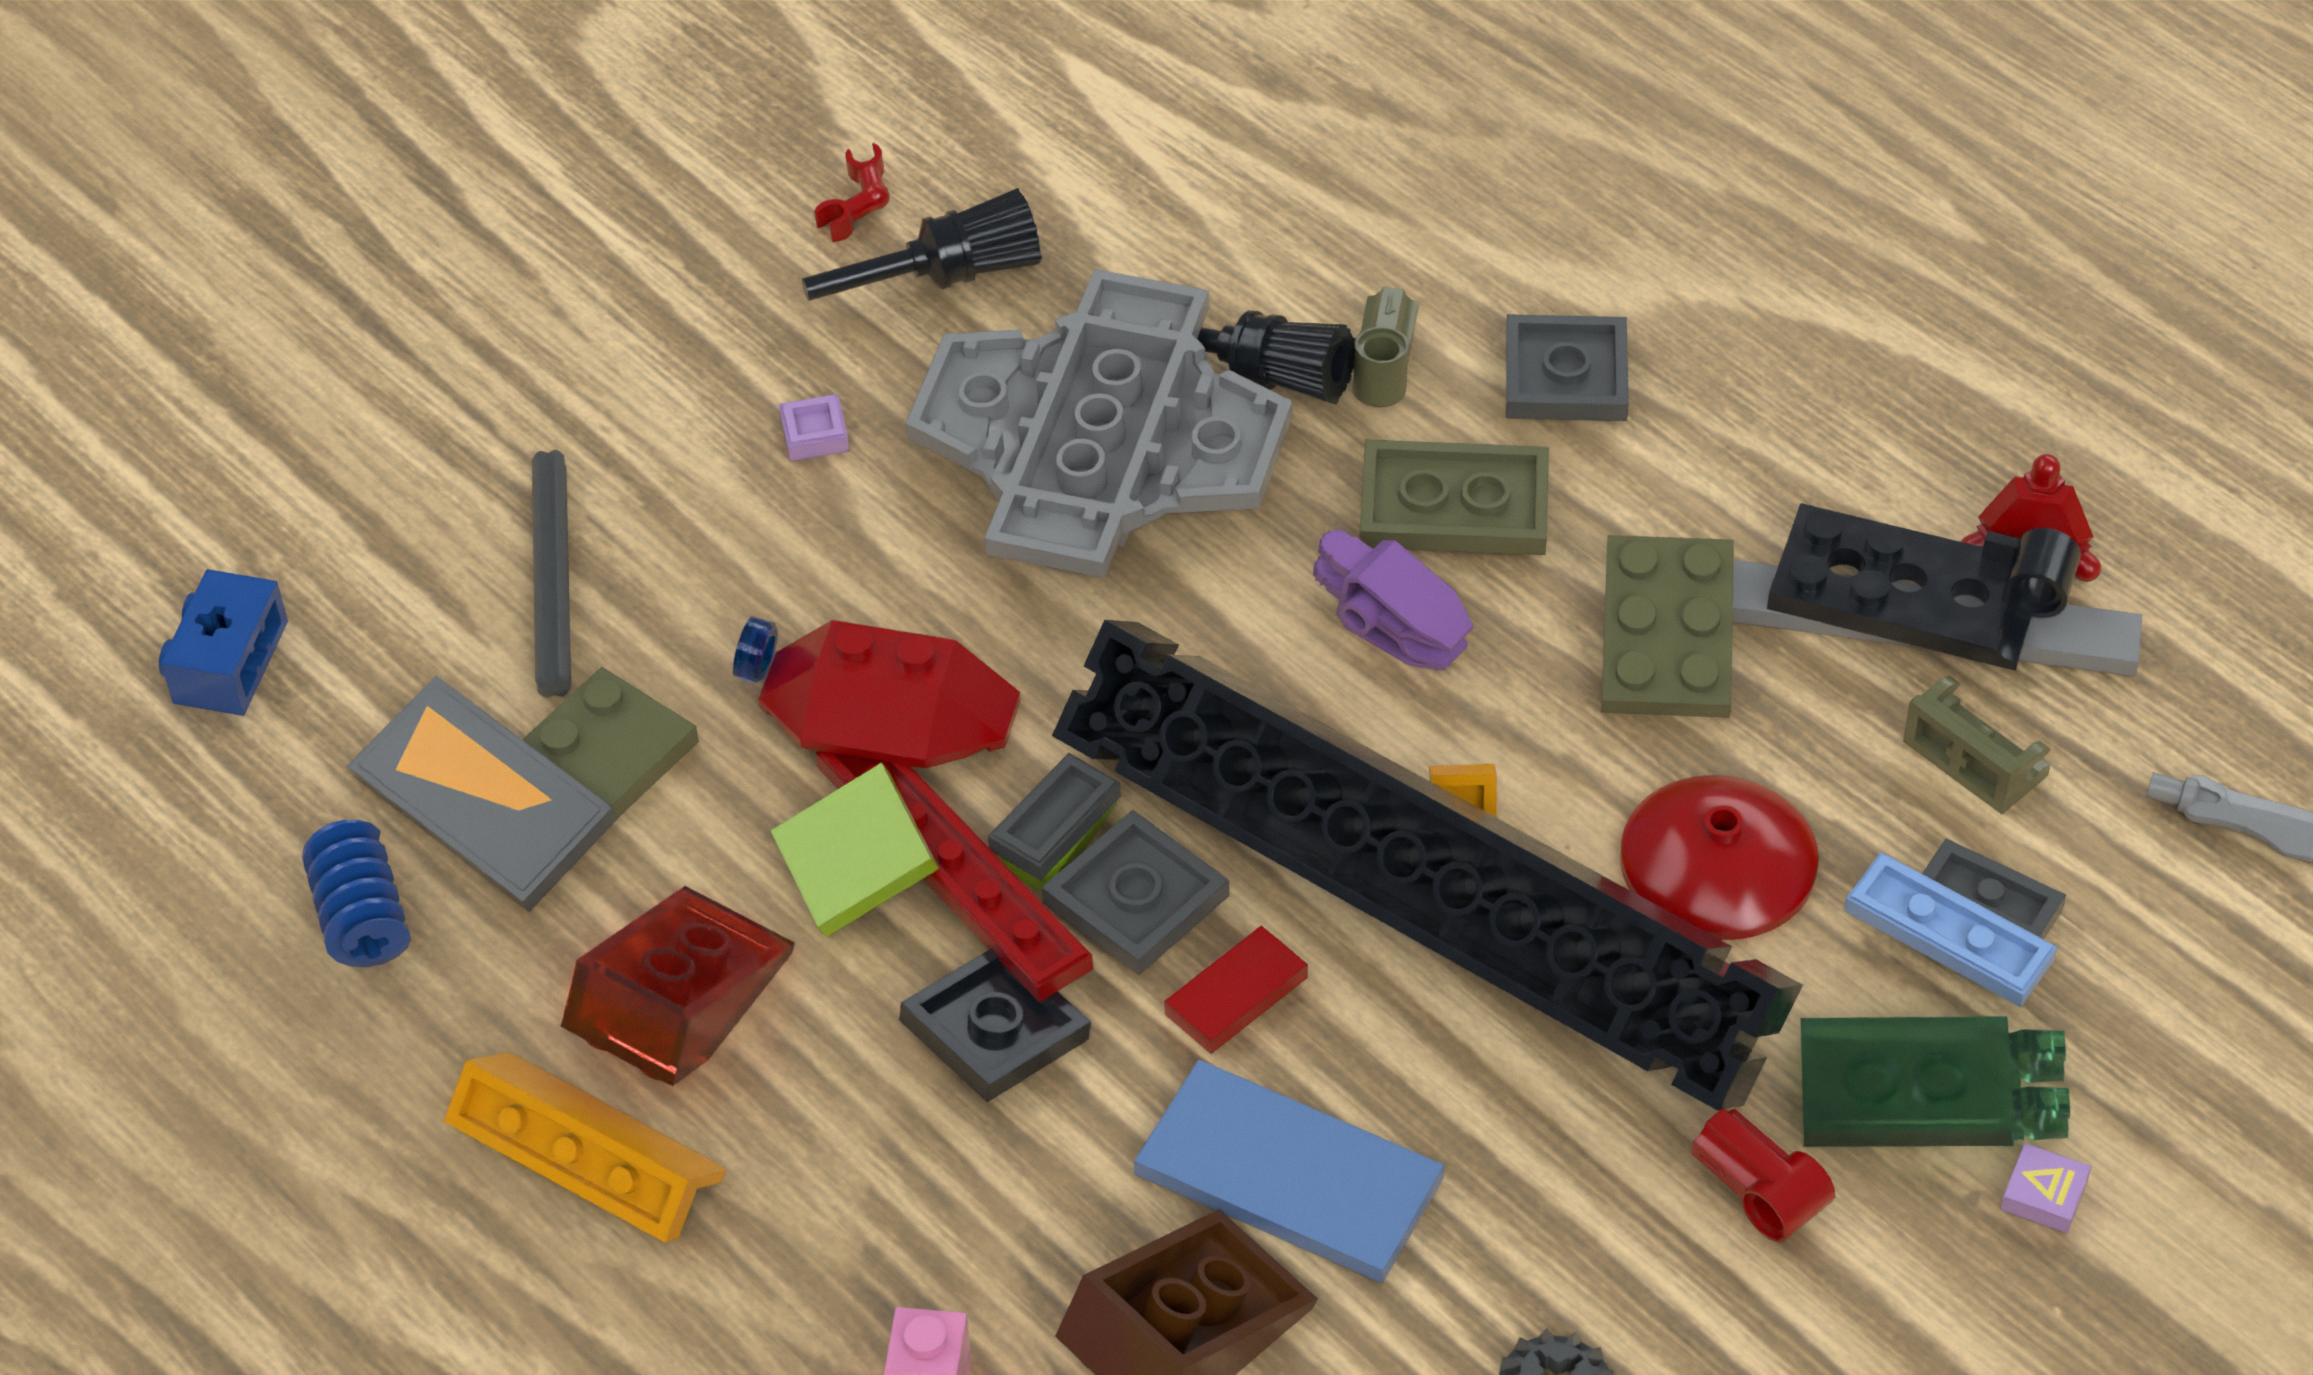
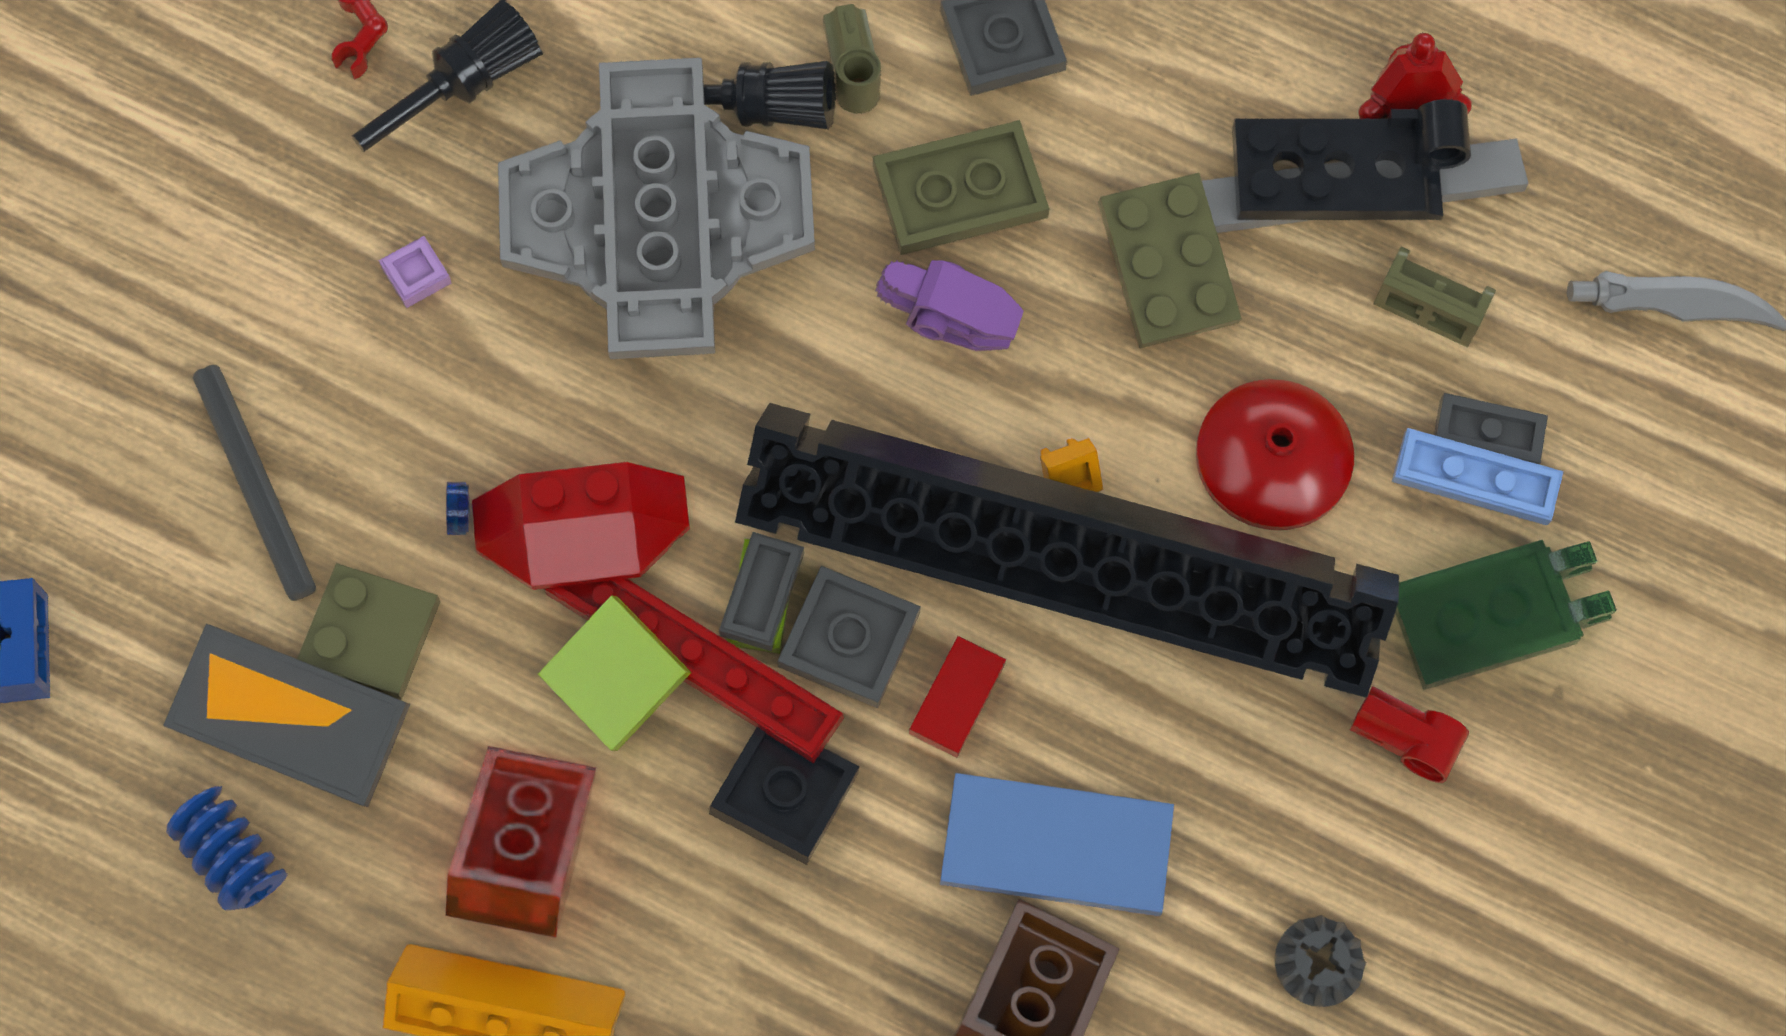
camera: 25 degrees left, 20 degrees up
(2045, 1188) = (1610, 671): lavender tile -> none

